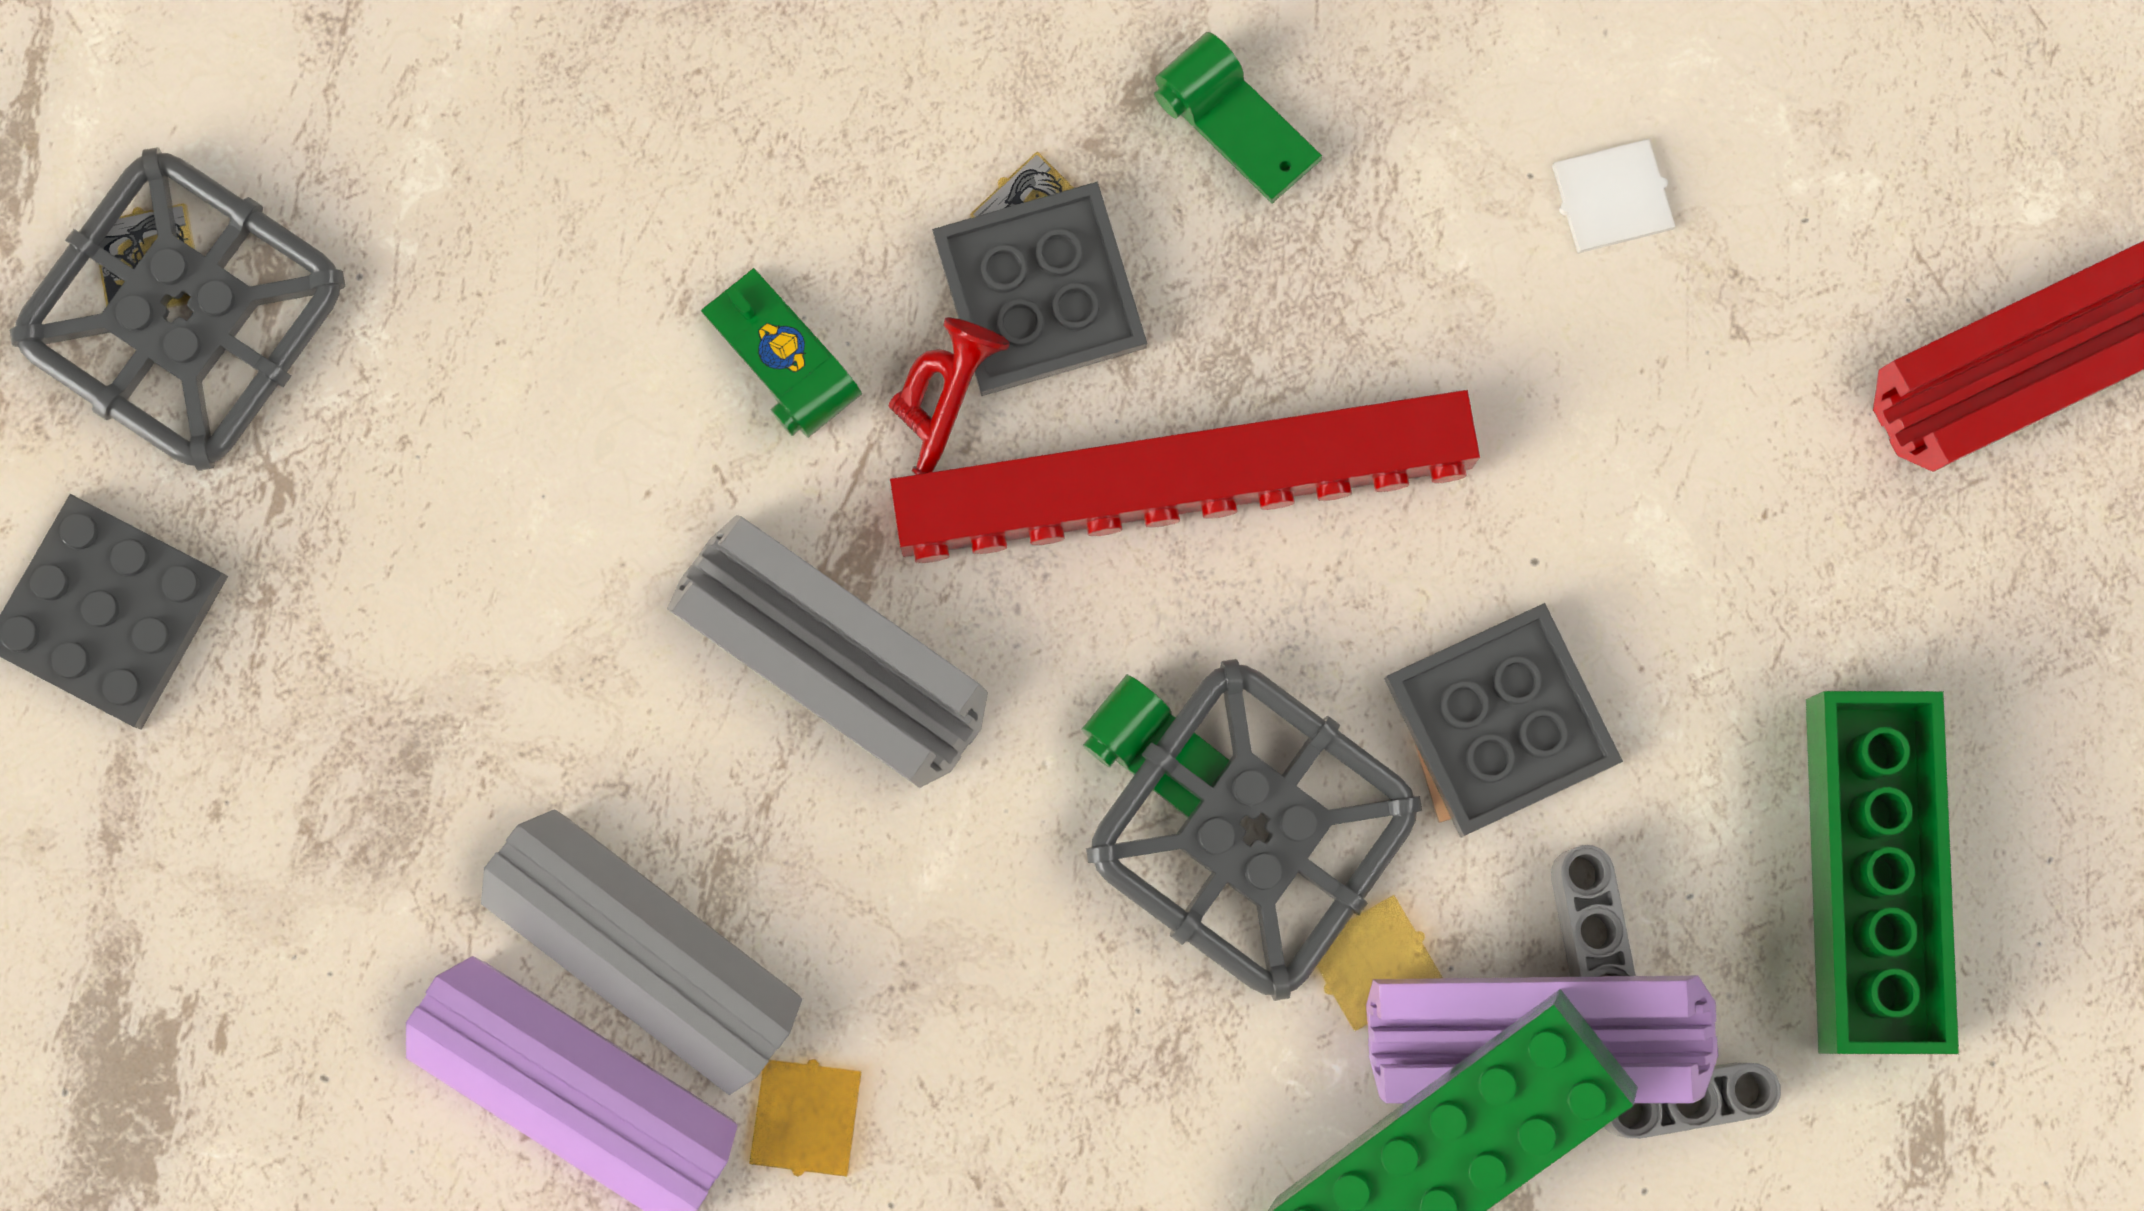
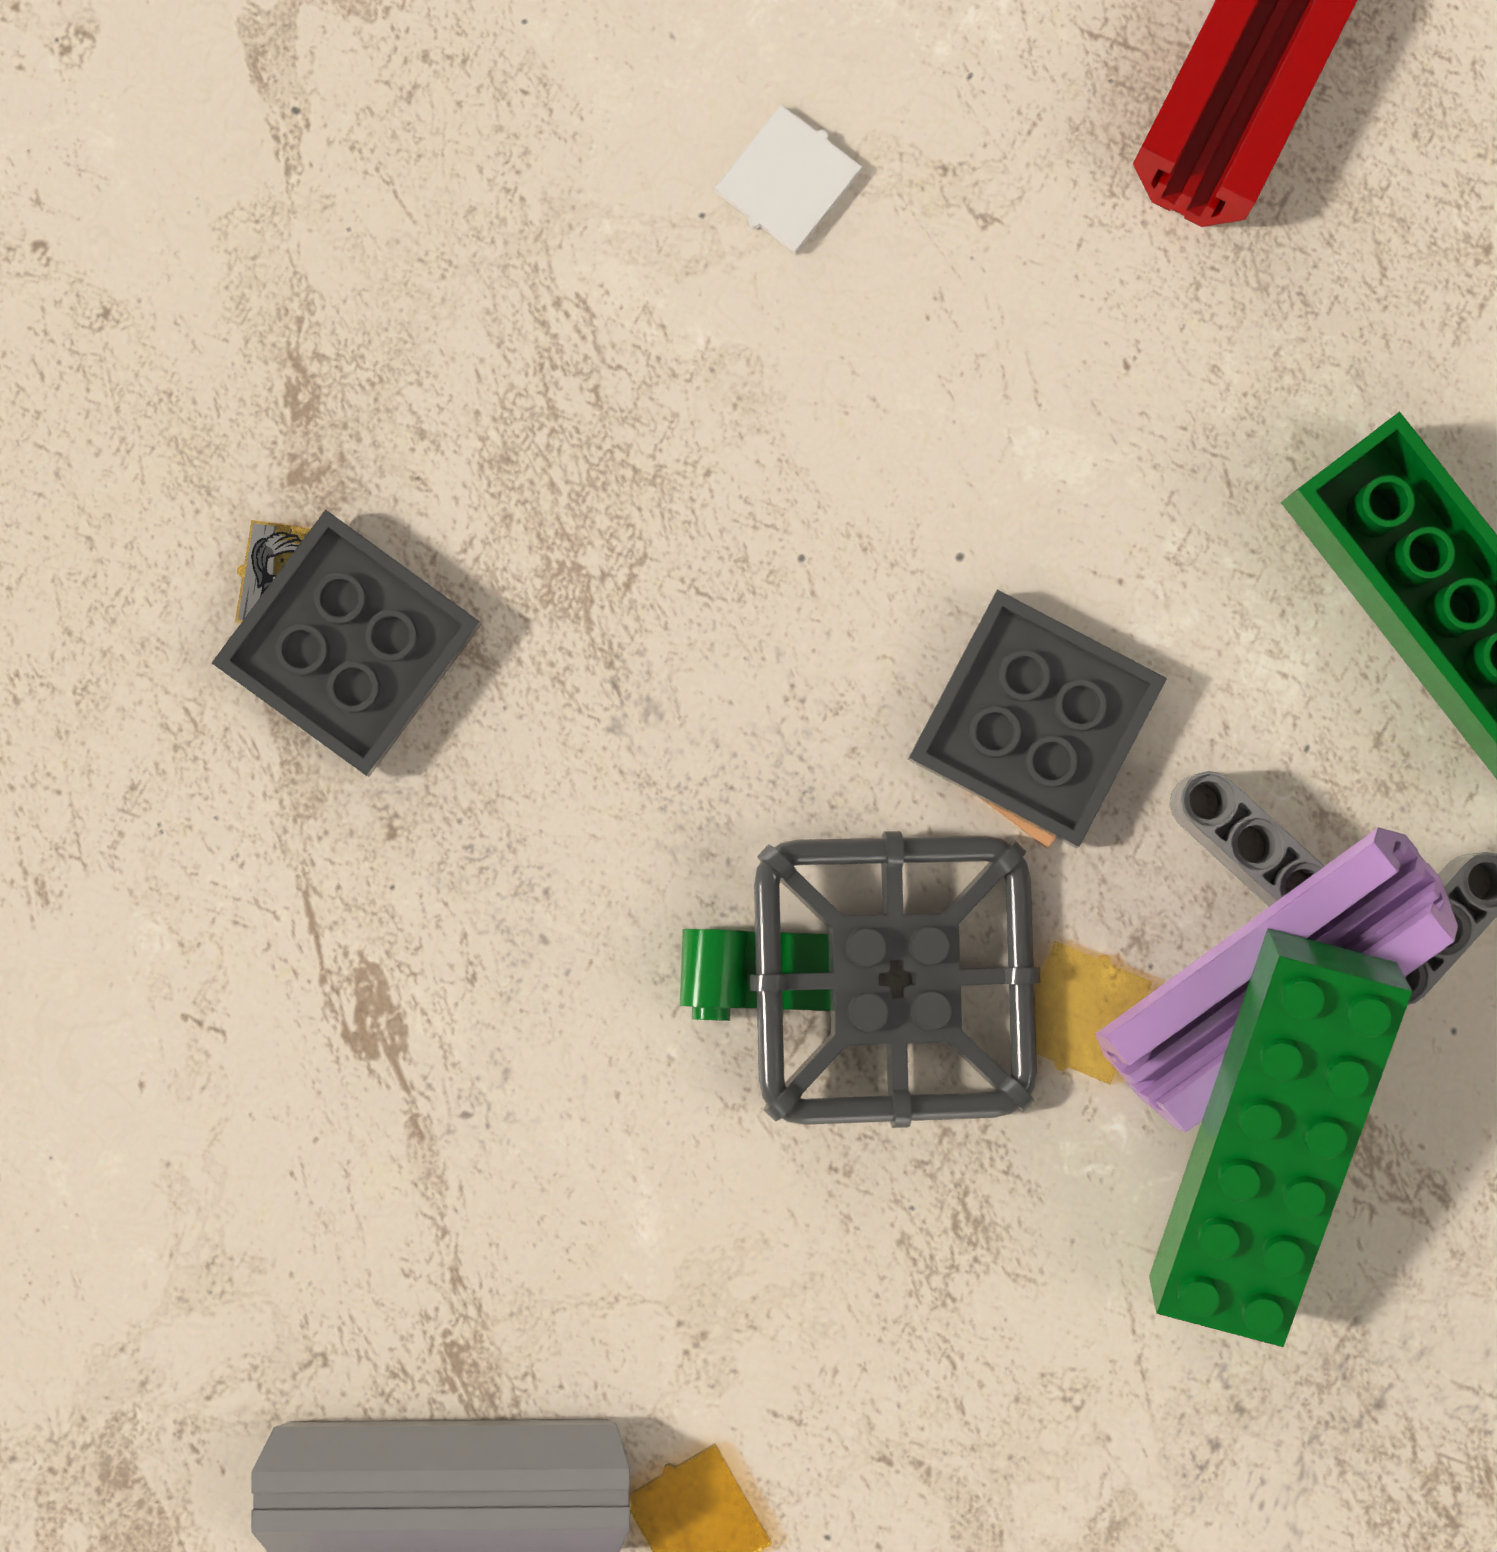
camera: 35 degrees left, 5 degrees up
(782, 354) = (164, 875): green door -> none
(831, 652) = (409, 1108): light grey piece -> none
(970, 348) = (326, 744): red piece -> none
(1184, 475) = (598, 715): red brick -> none
(1211, 94) = (403, 359): green door -> none

